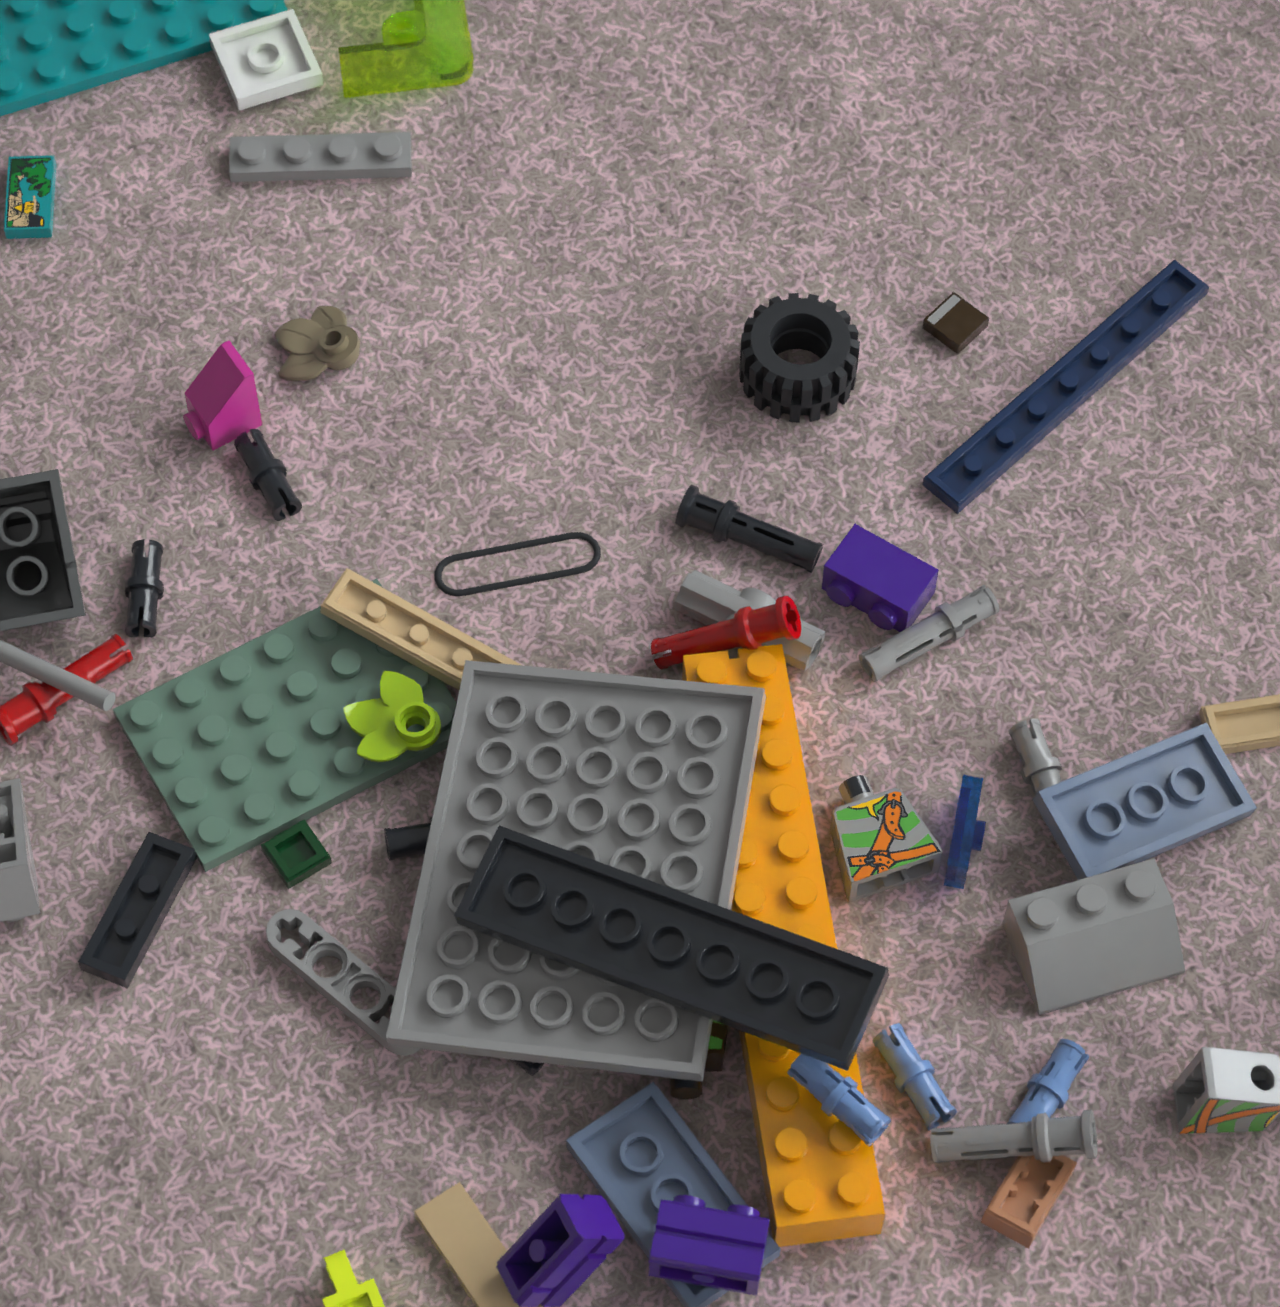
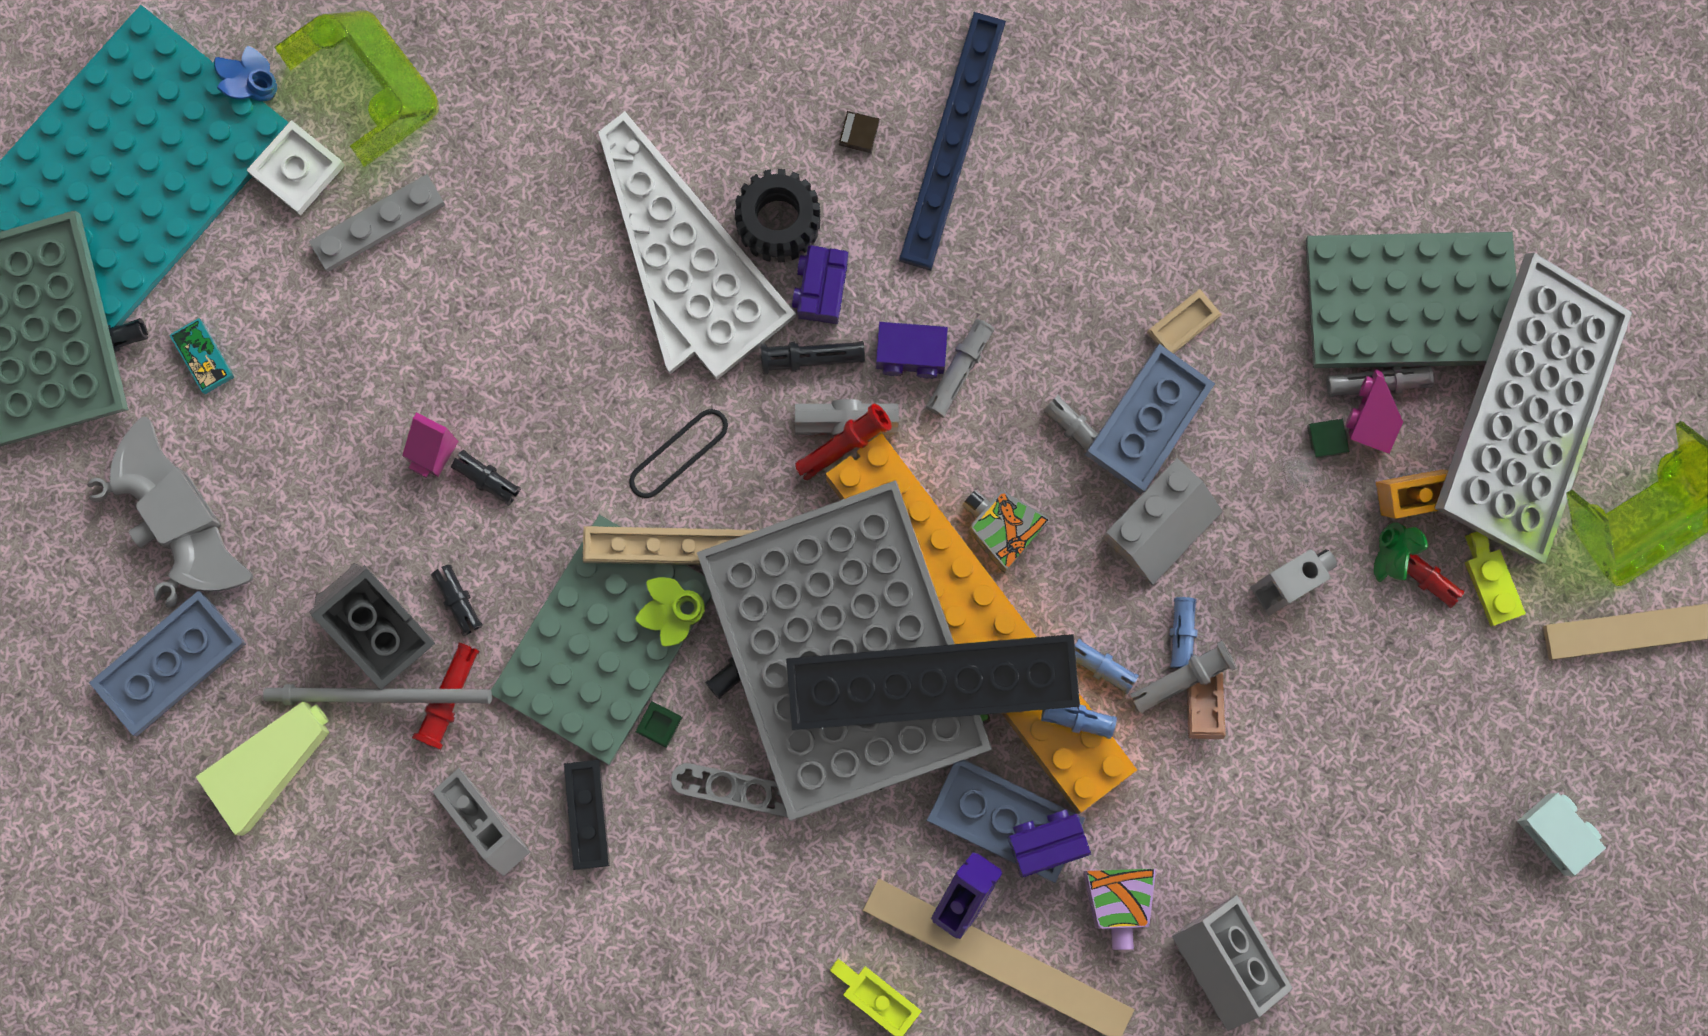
camera: 30 degrees left, 20 degrees up
(317, 344) = (455, 367): dark tan plate -> none
(658, 371) = (694, 275): none -> white wing
(808, 458) = (822, 284): none -> dark purple brick
(967, 832) = (1053, 494): clear blue plate -> none

